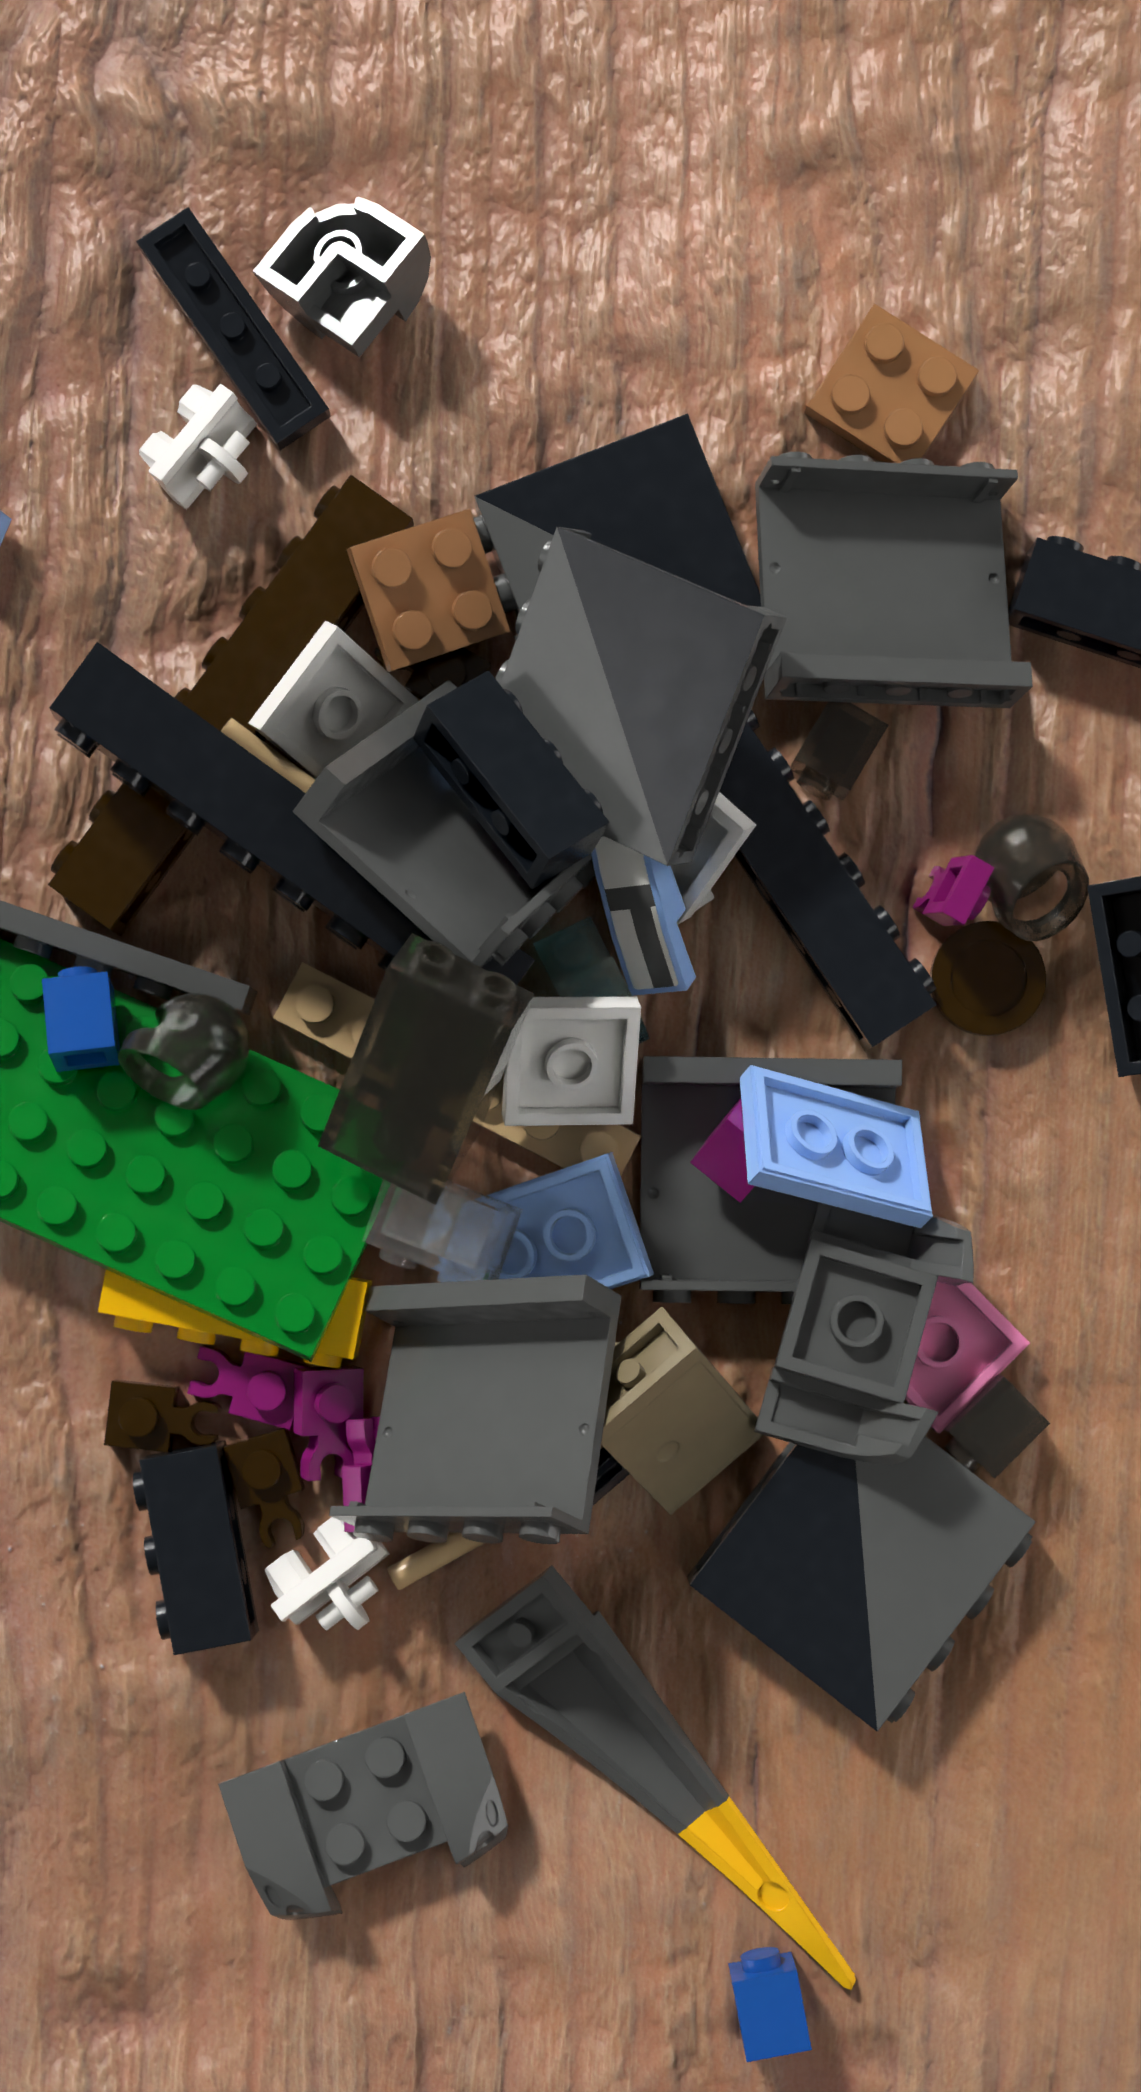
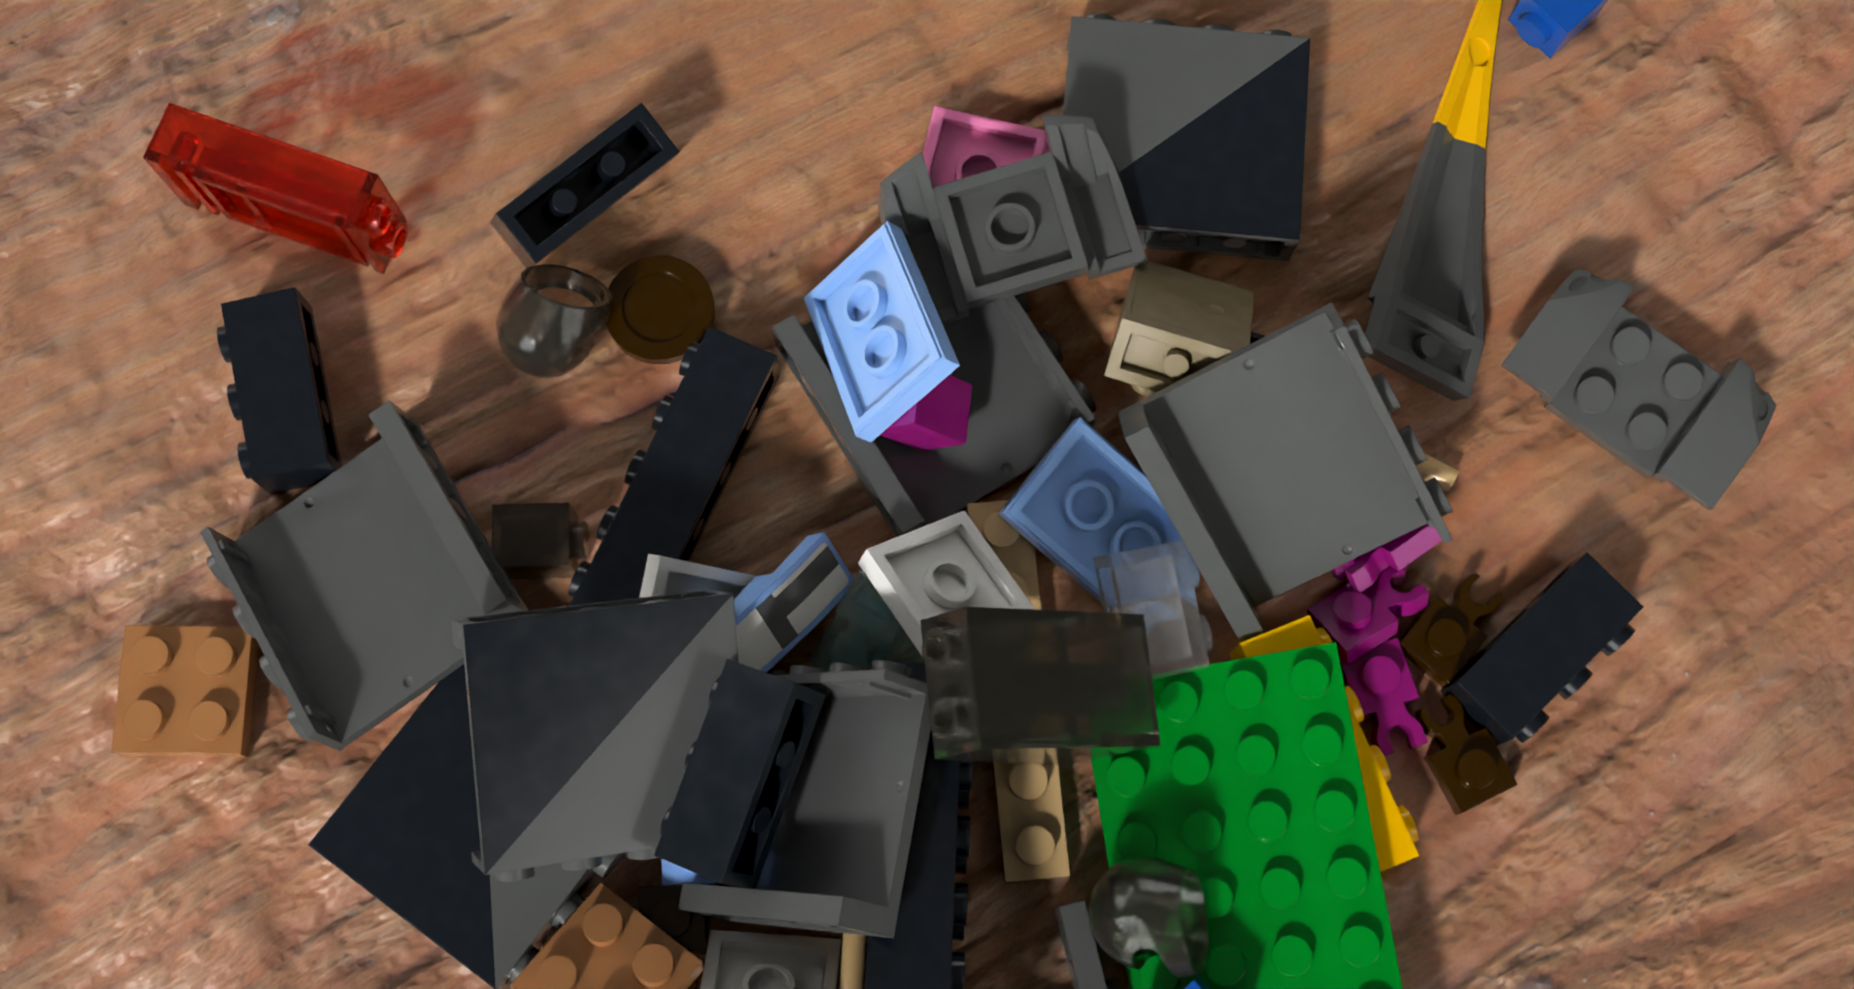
camera: 125 degrees left, 10 degrees down
(304, 1591) = (1515, 544): white hips -> none
(956, 891) = (604, 366): magenta plate -> none
(994, 1428) = (1019, 90): clear smoke brick -> none

